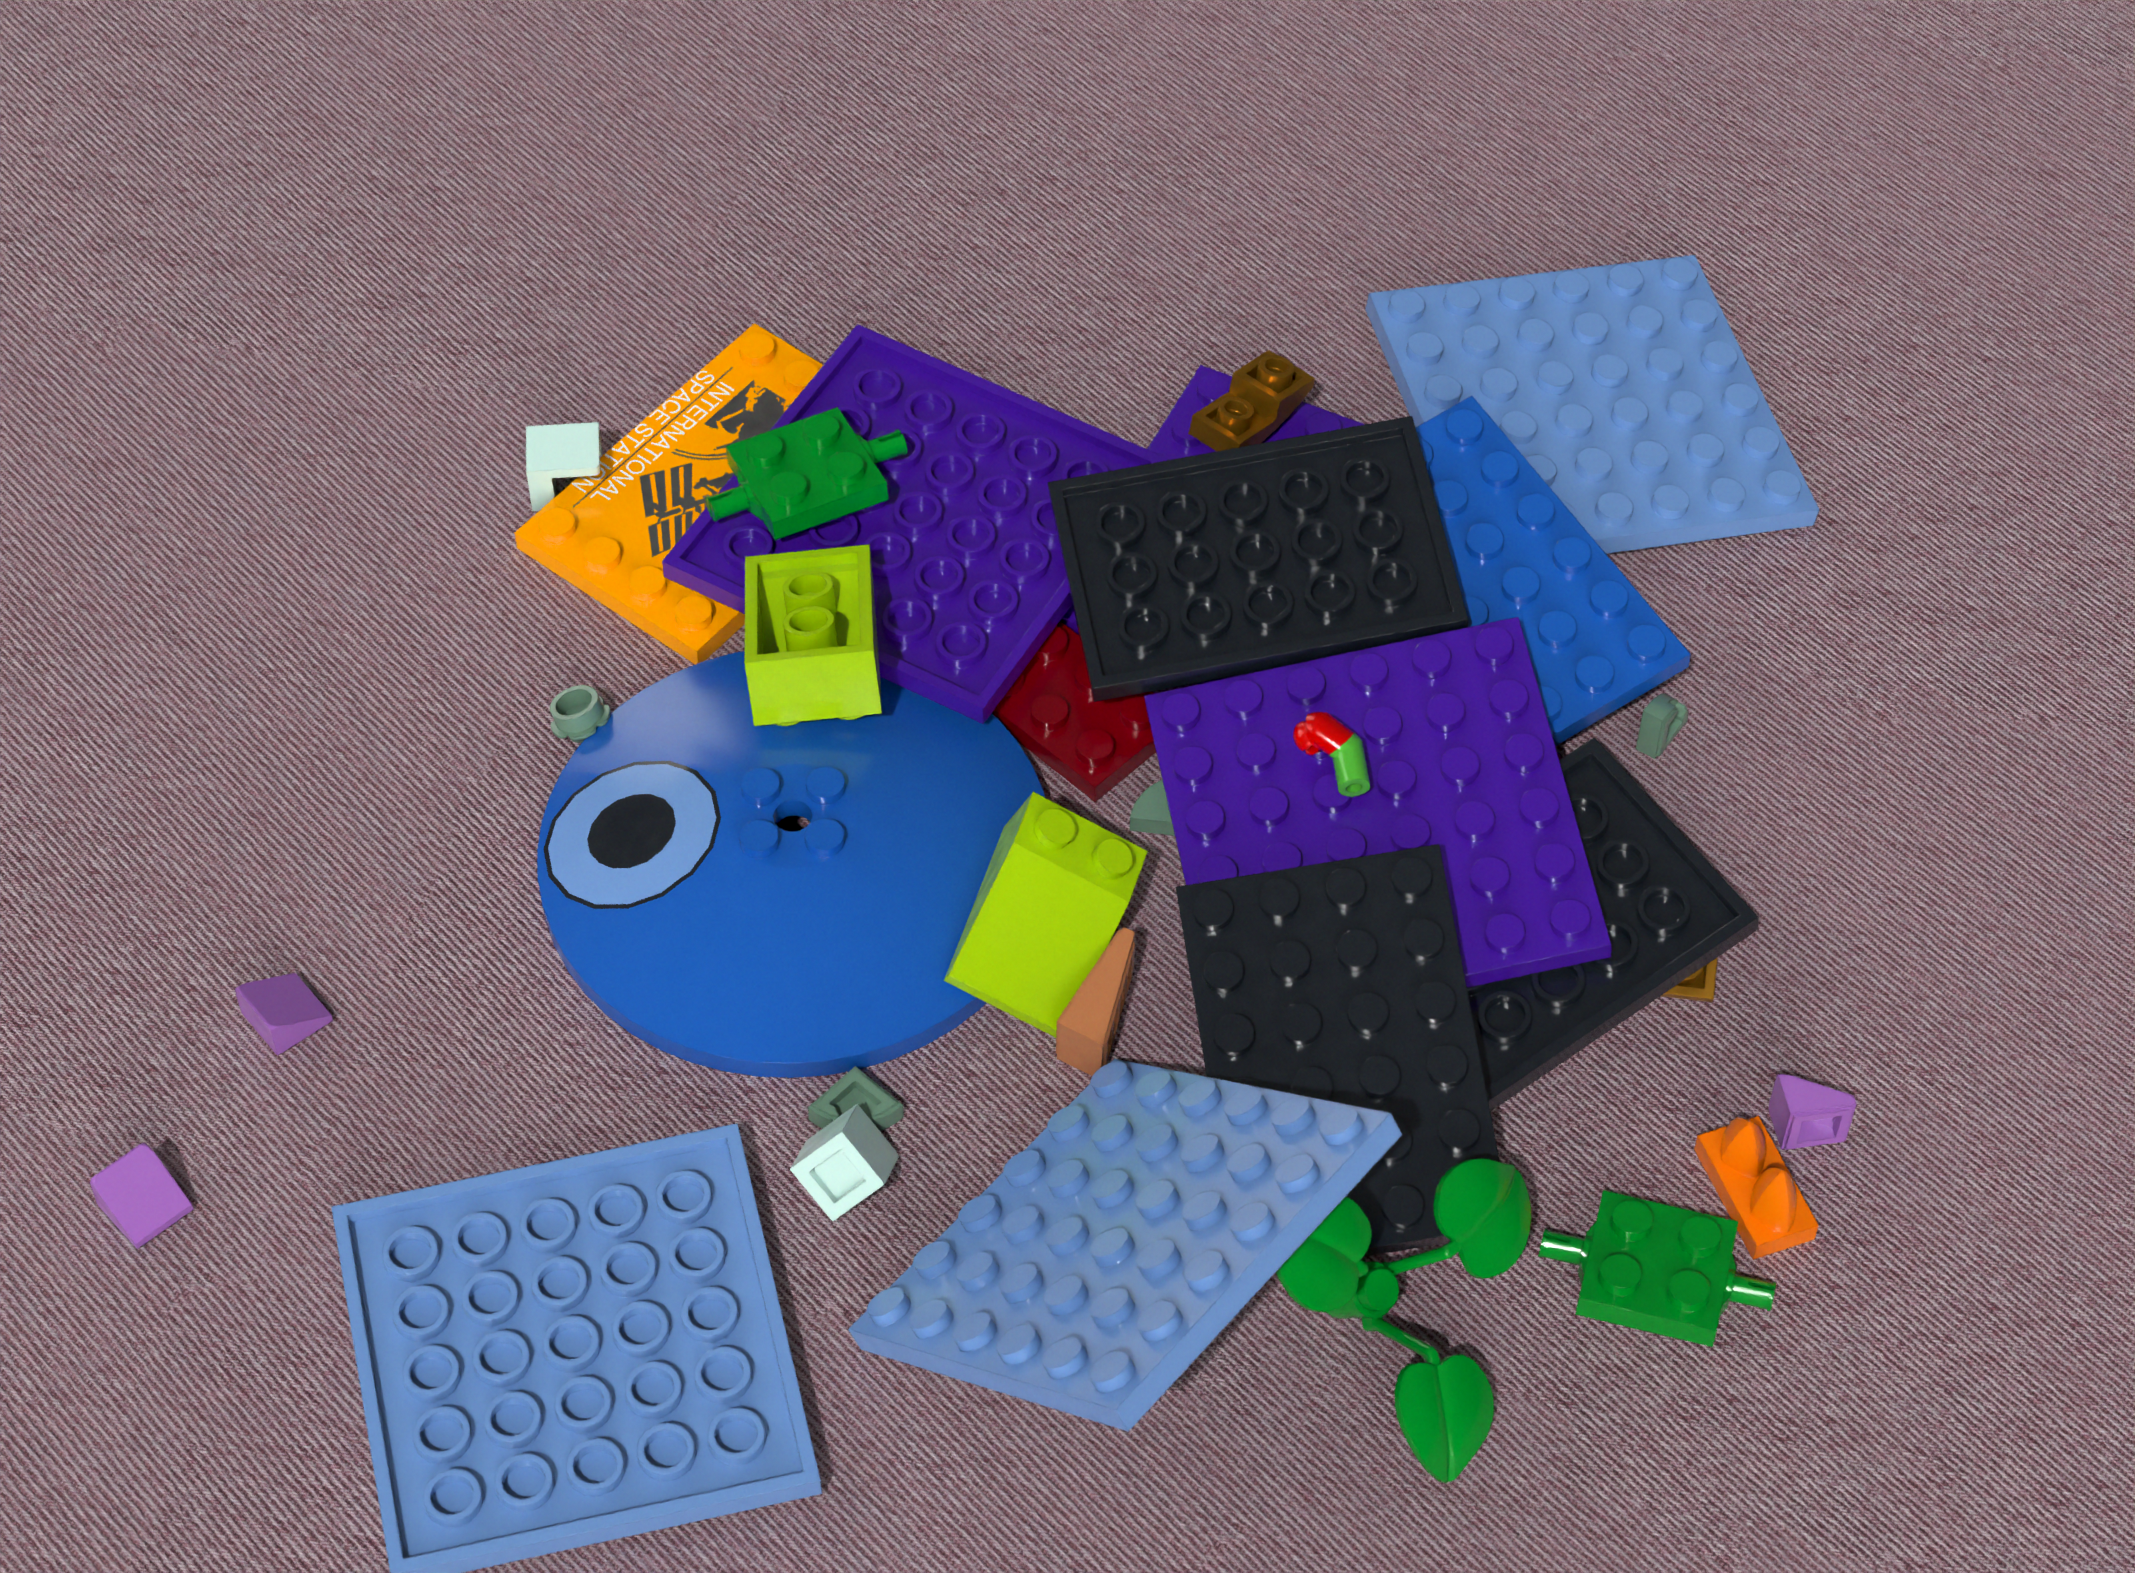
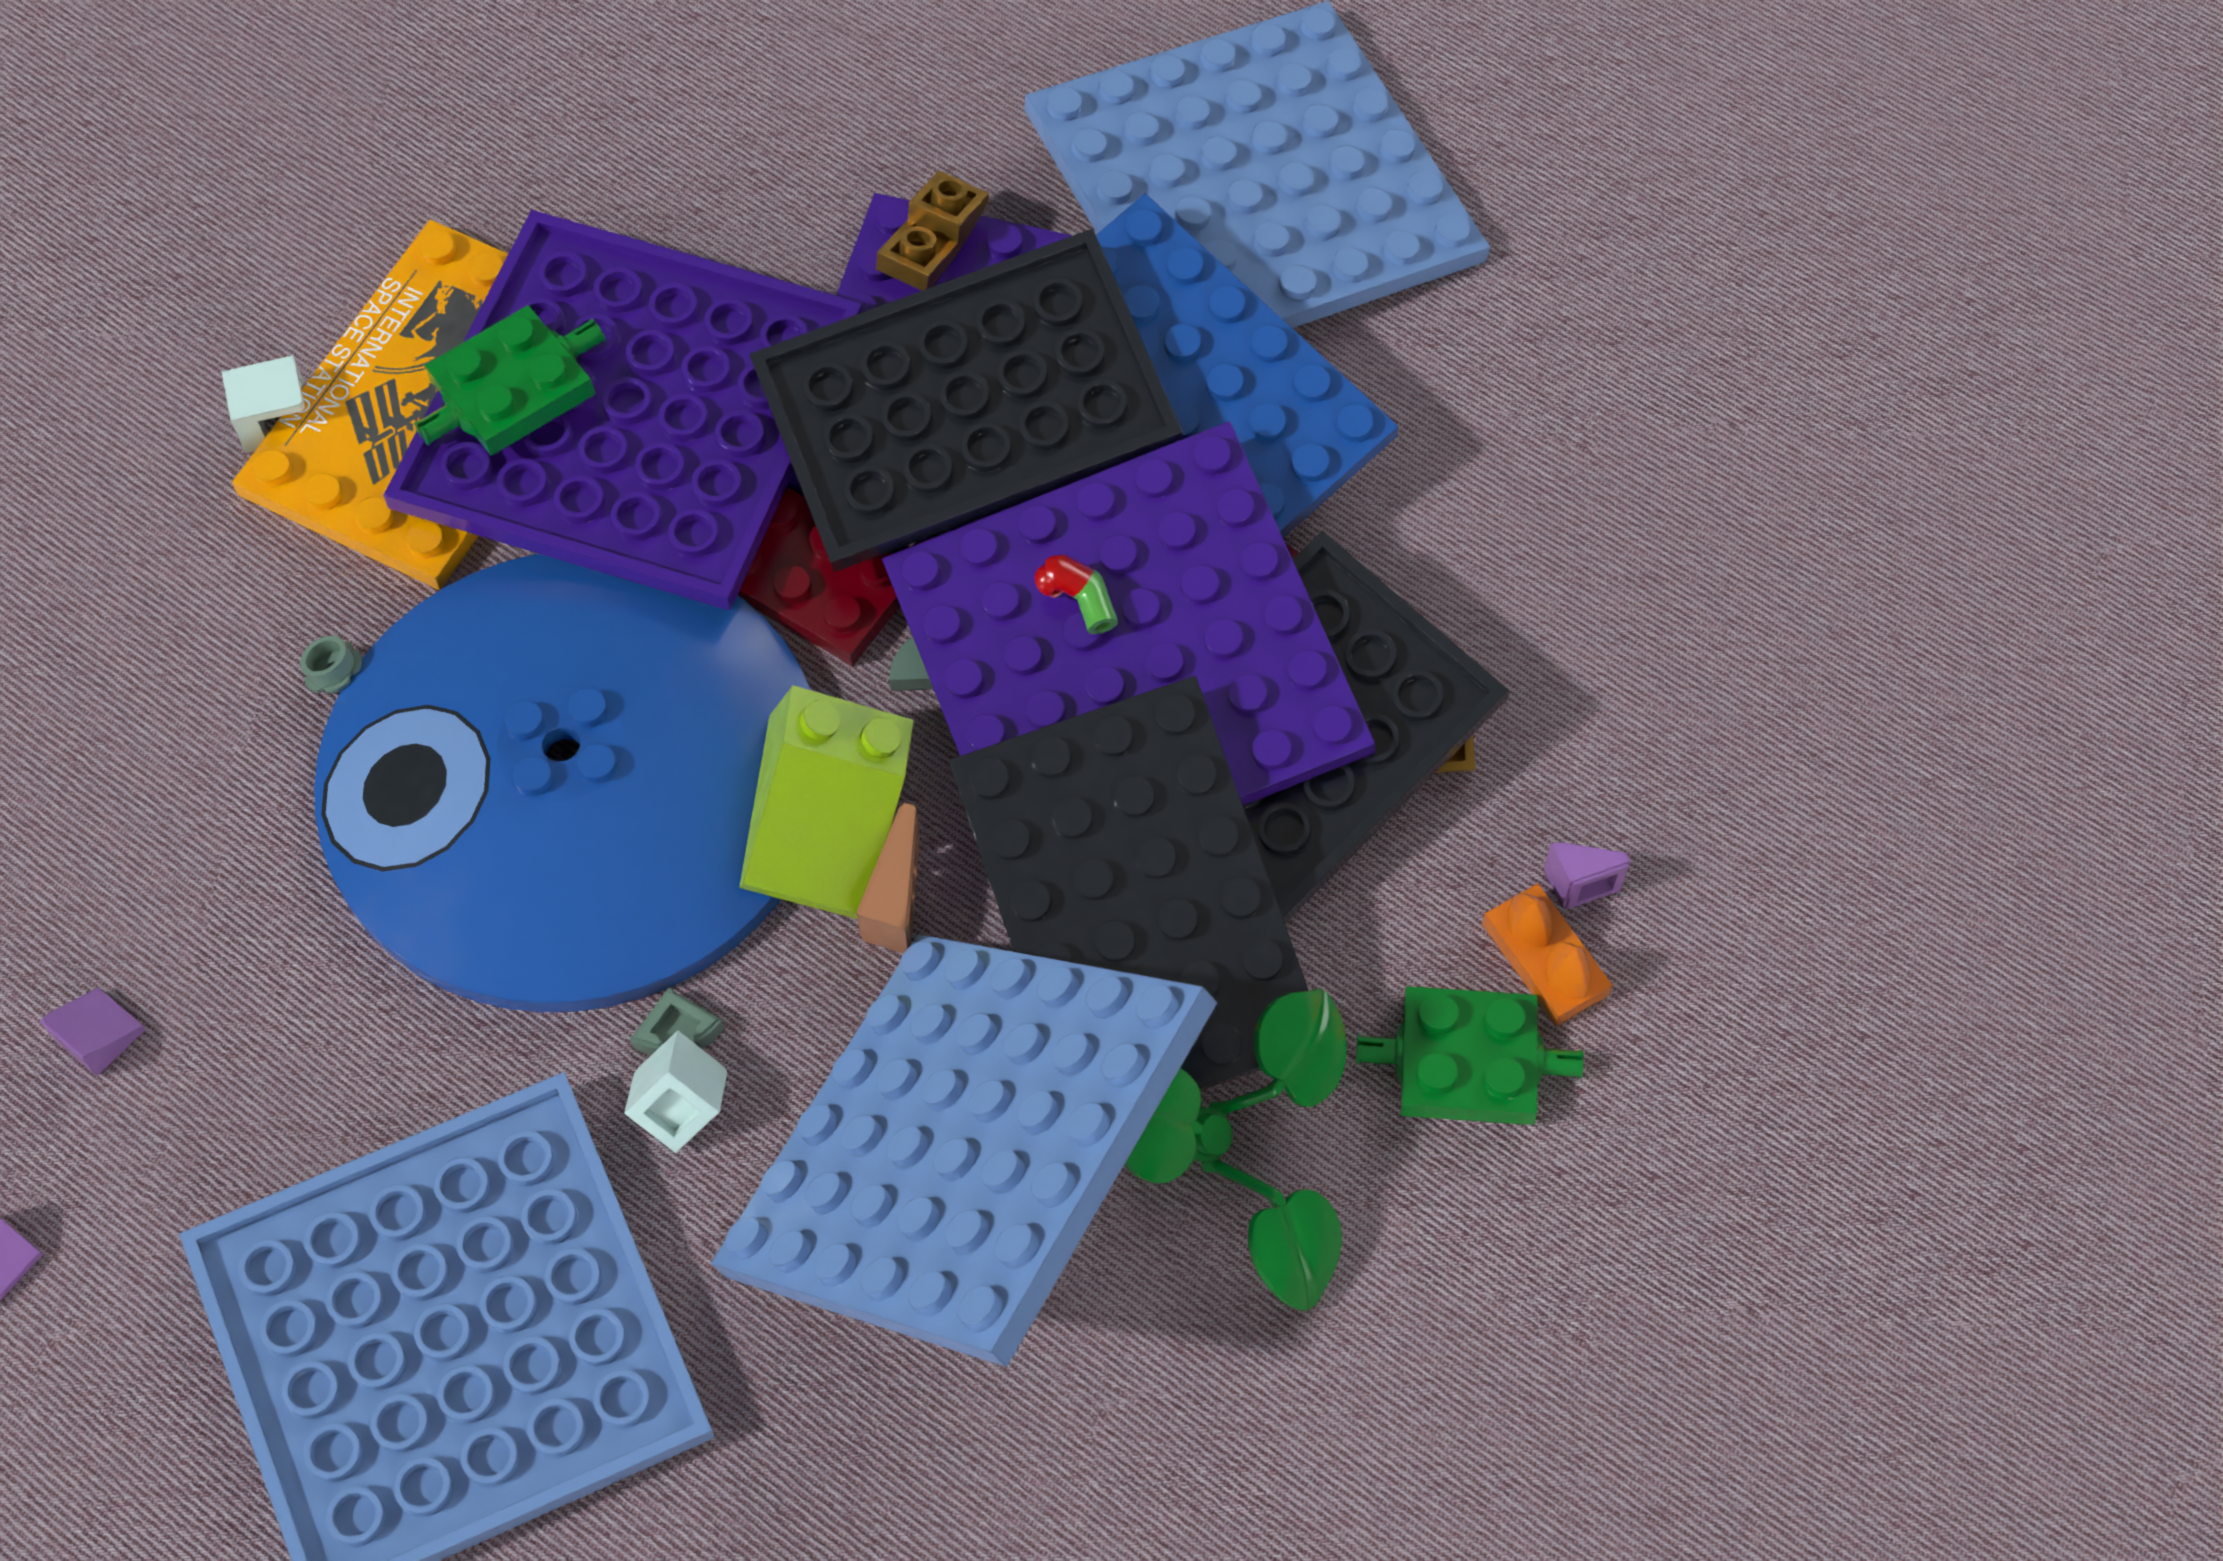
camera: 10 degrees left, 10 degrees up
(811, 636) = (544, 553): lime slope -> none
(1660, 724) = (1378, 495): sand green tile -> none

